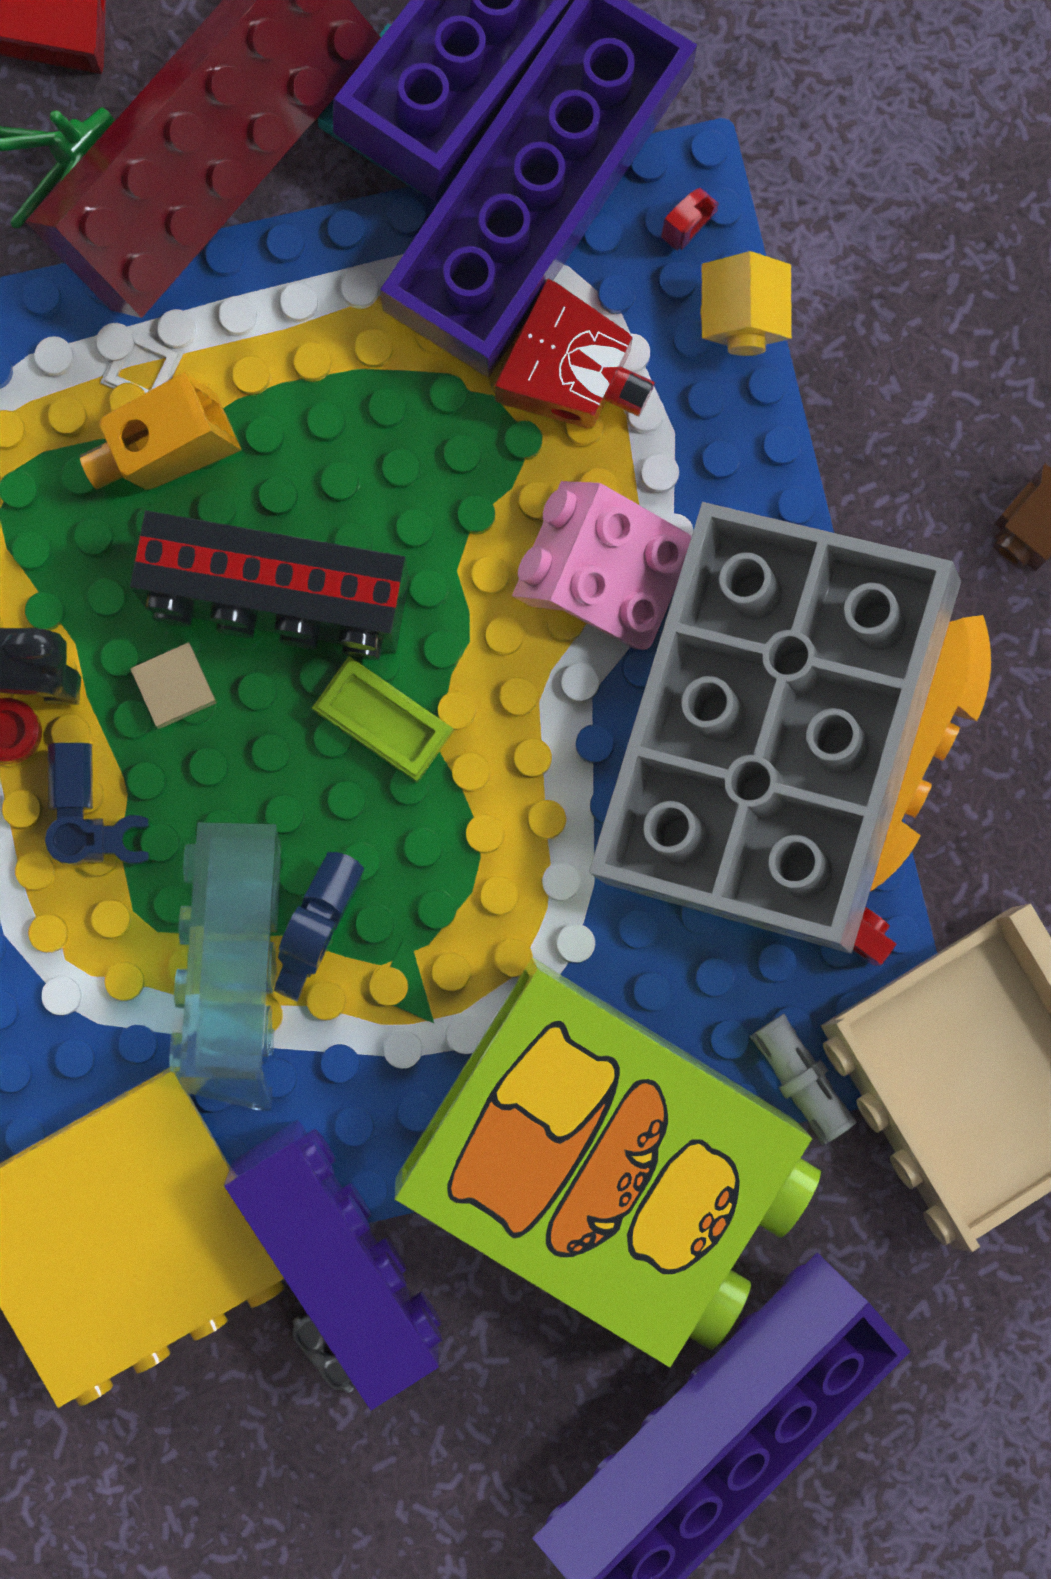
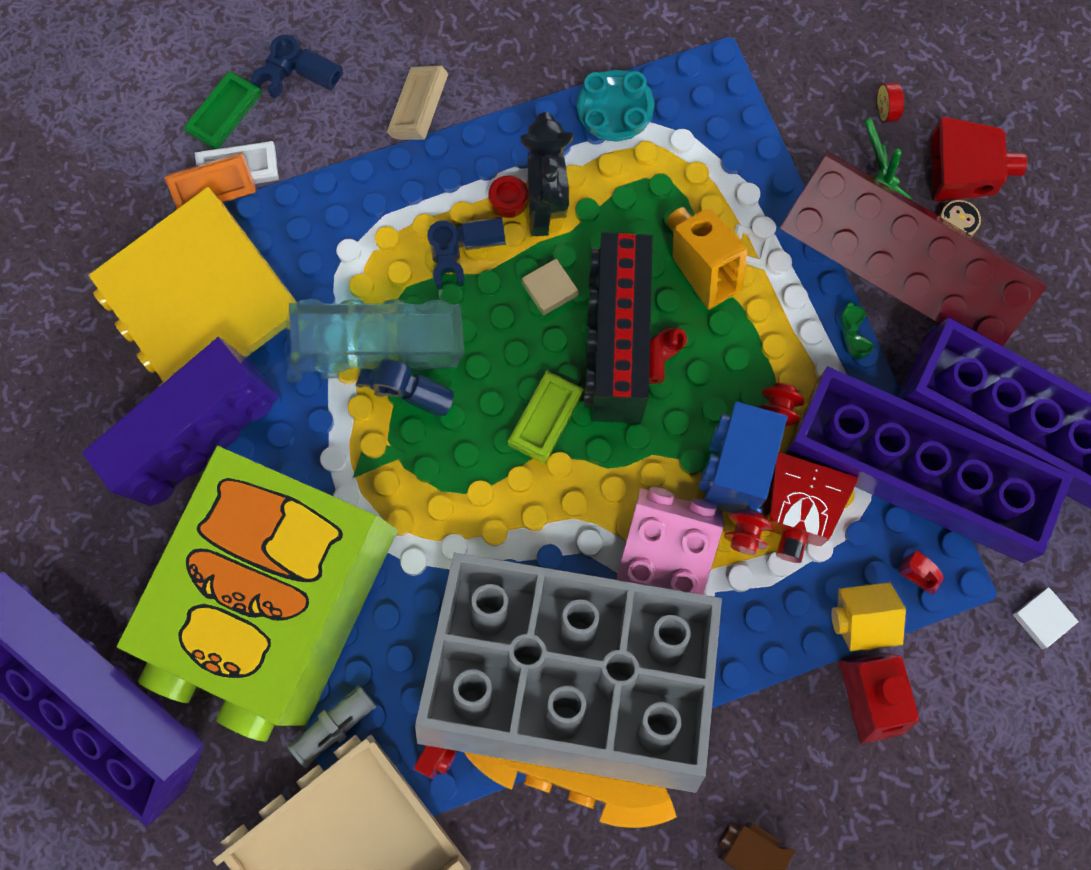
camera: 85 degrees right, 10 degrees down
(143, 41) = (962, 215): none -> tile
(289, 239) = (850, 321): none -> green piece
(292, 518) = (662, 348): none -> red arm
(503, 432) = (745, 461): none -> blue brick
(768, 59) = (1045, 618): none -> white tile
(849, 311) = (879, 695): none -> red torso

